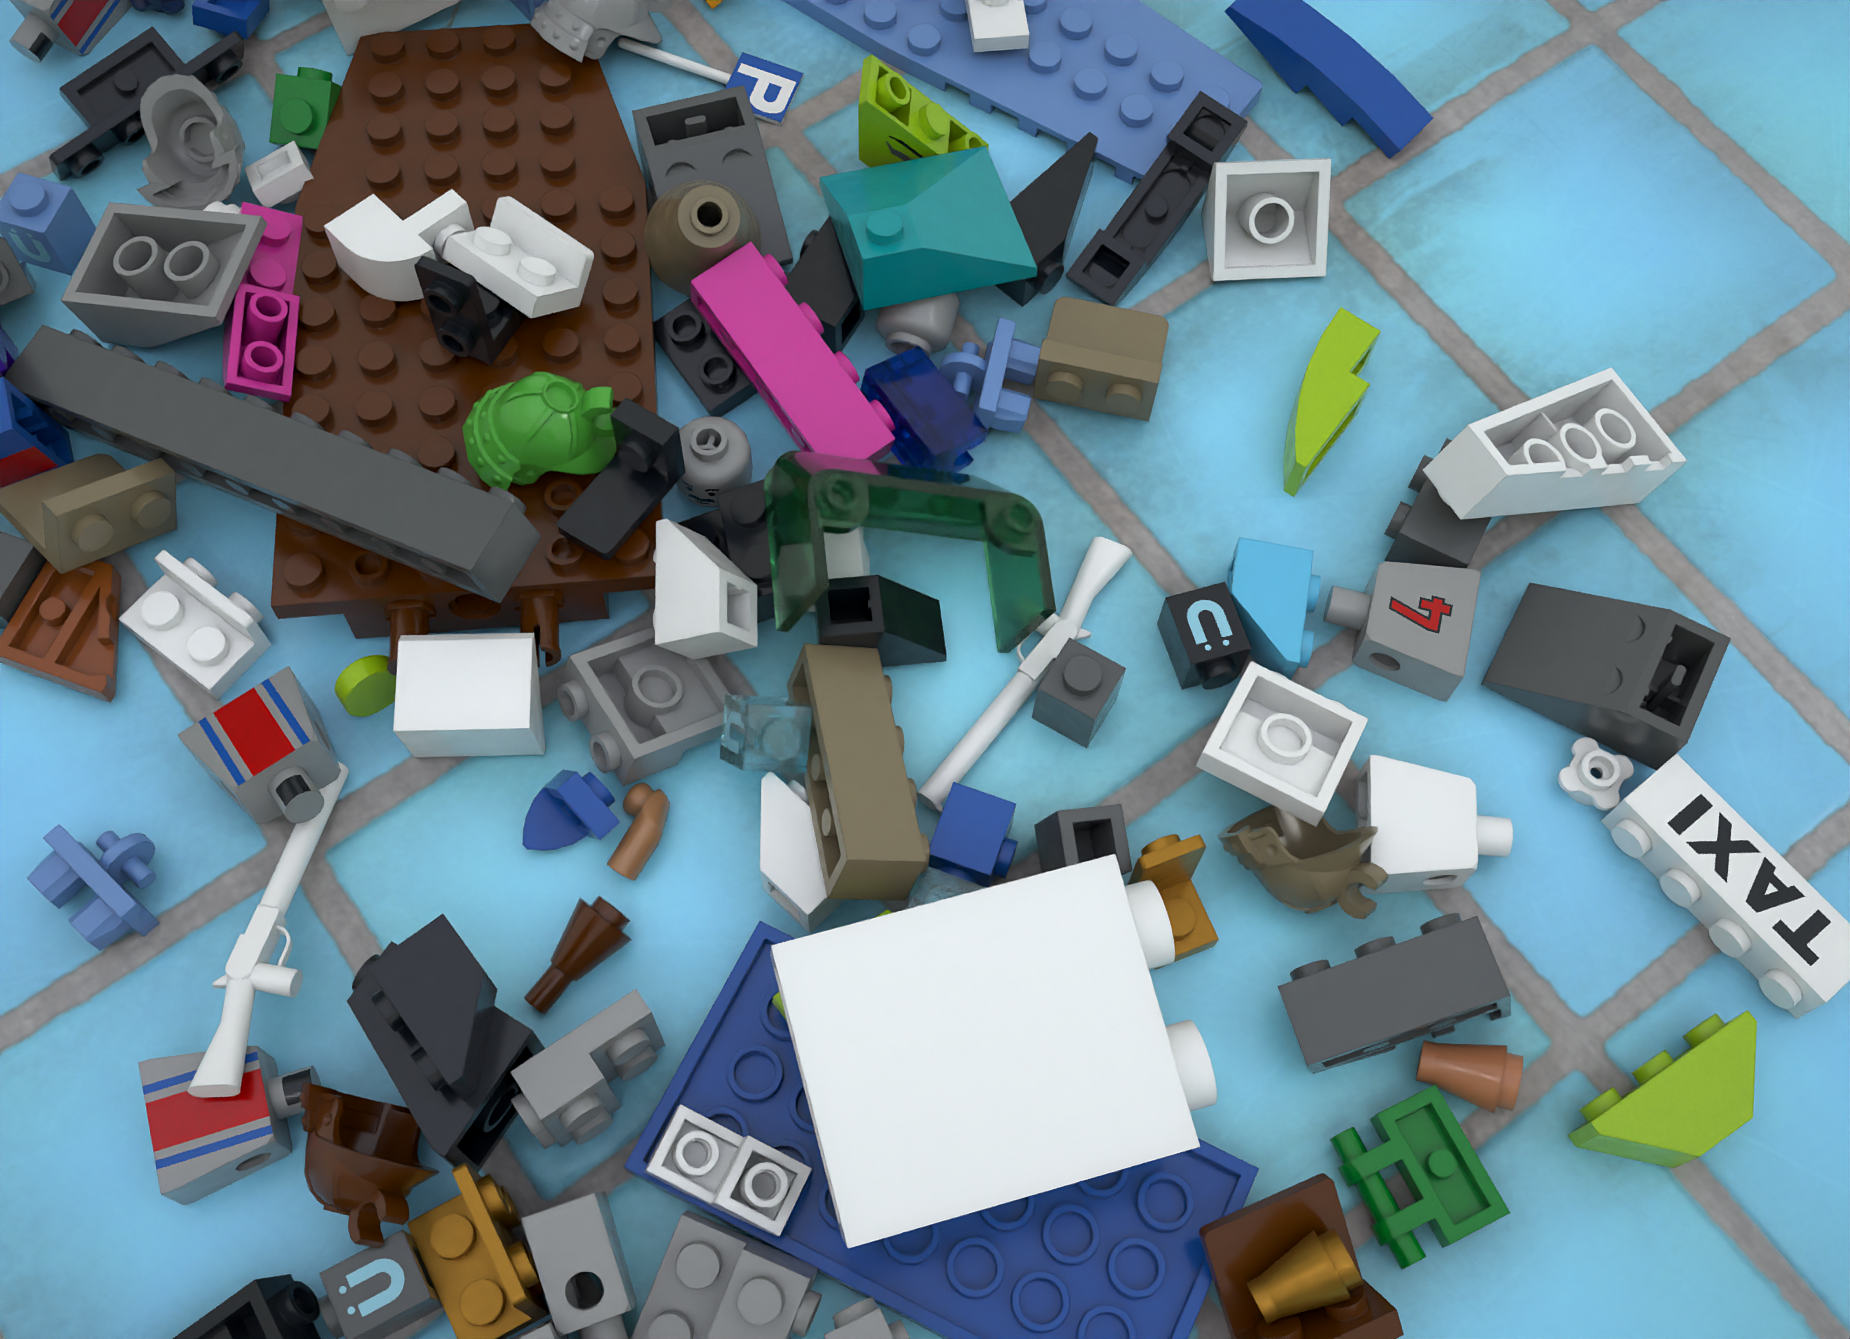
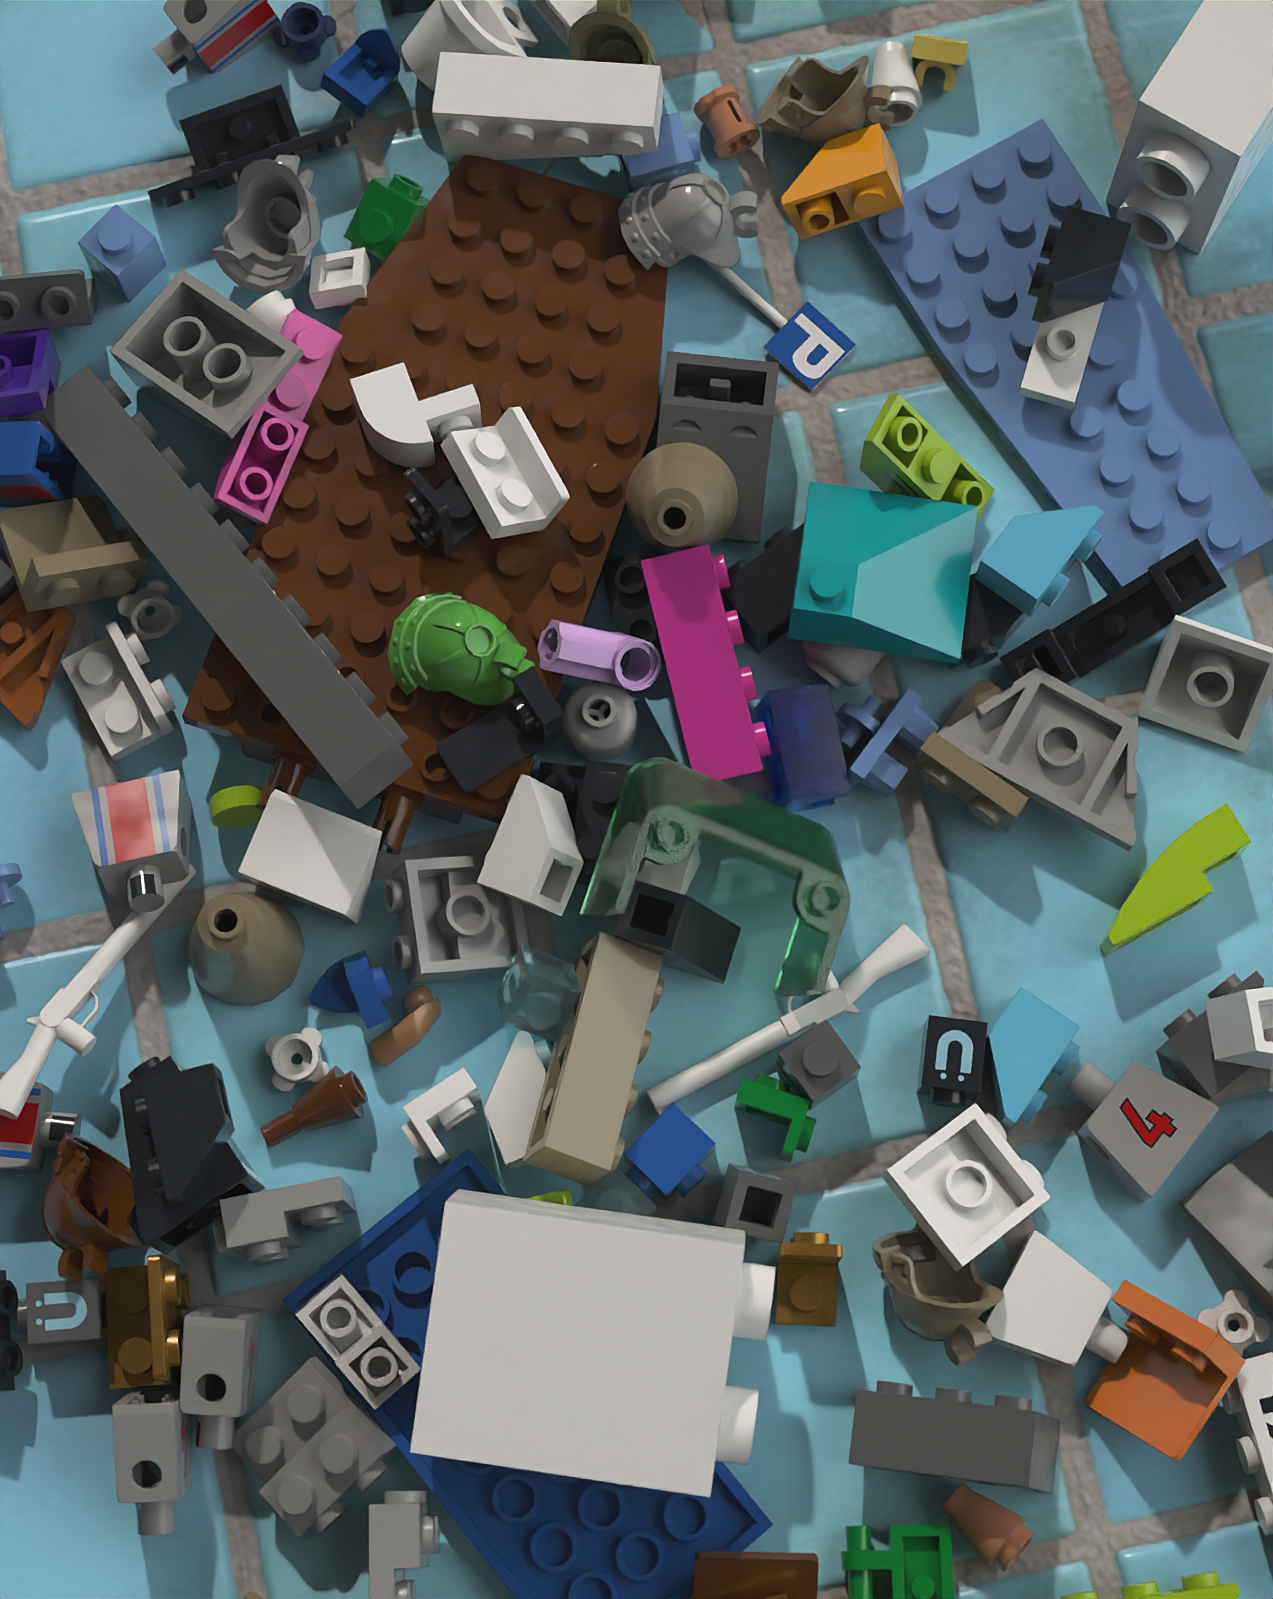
camera: 30 degrees right, 10 degrees up
(199, 516) = (160, 620): none -> white plate
(428, 816) = (245, 948): none -> dark tan cone
(516, 906) = (282, 1051): none -> white plate
(686, 388) = (597, 655): none -> lavender piece
(714, 892) = (445, 1104): none -> white bracket
(1052, 749) = (771, 1101): none -> green bracket
(1060, 154) = (1035, 551): none -> medium azure slope
(1171, 318) = (1058, 752): none -> light grey wing
(1569, 837) = (1165, 1376): none -> orange bracket

